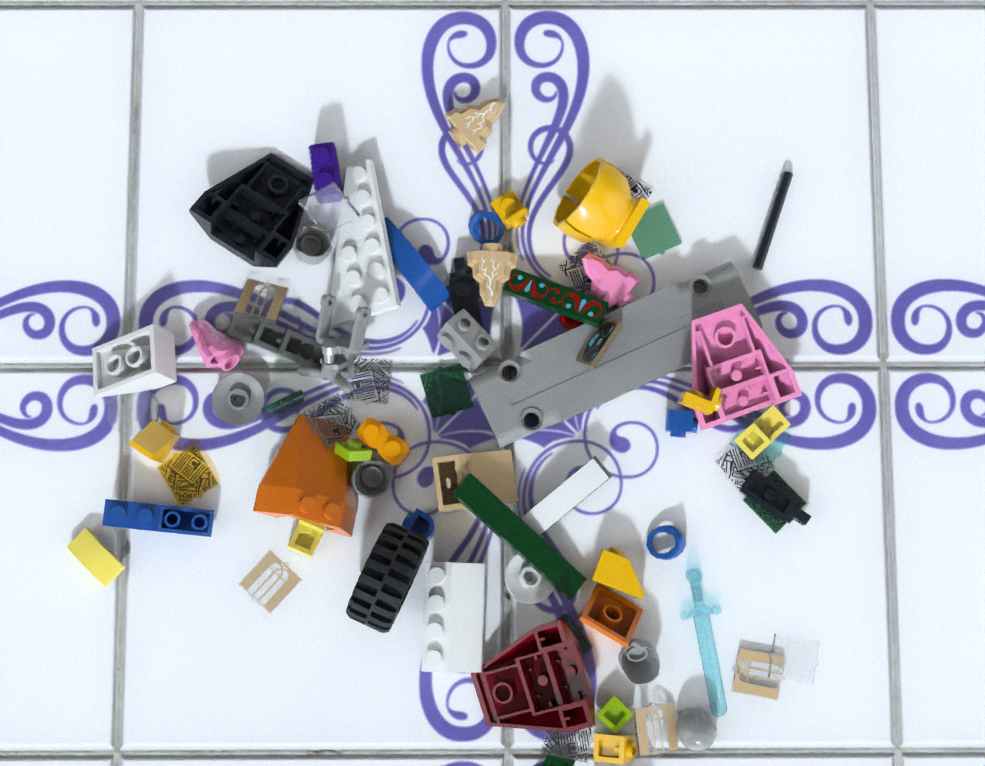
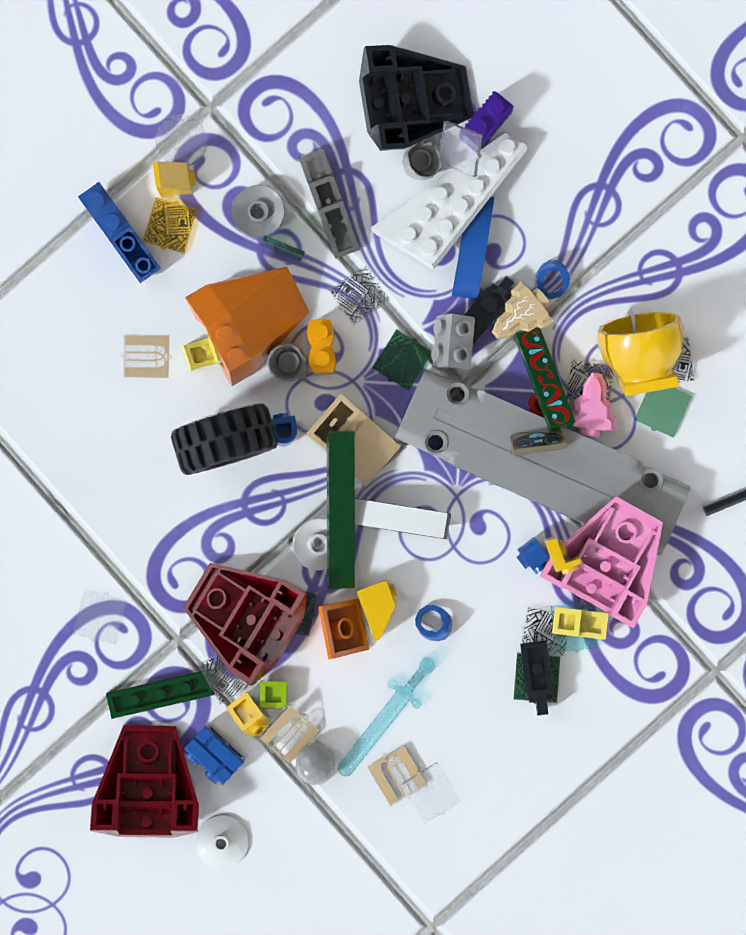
camera: 50 degrees right, 5 degrees up
(96, 557) = (51, 212): light yellow slope -> none
(134, 362) = (216, 110): white slope -> none
(215, 347) = (281, 158): bright pink rock -> none
(261, 301) = (345, 161): piece -> none
(332, 420) = (304, 295): clear piece -> none
(338, 352) = (360, 254): light grey piece -> none
(353, 450) = (294, 330): lime plate -> none
(453, 617) = (239, 513): white slope -> none
(474, 123) = (625, 198): tan rock -> none
(510, 210) = (582, 285): yellow bracket -> none
(639, 661) = (327, 679): light grey hair -> none

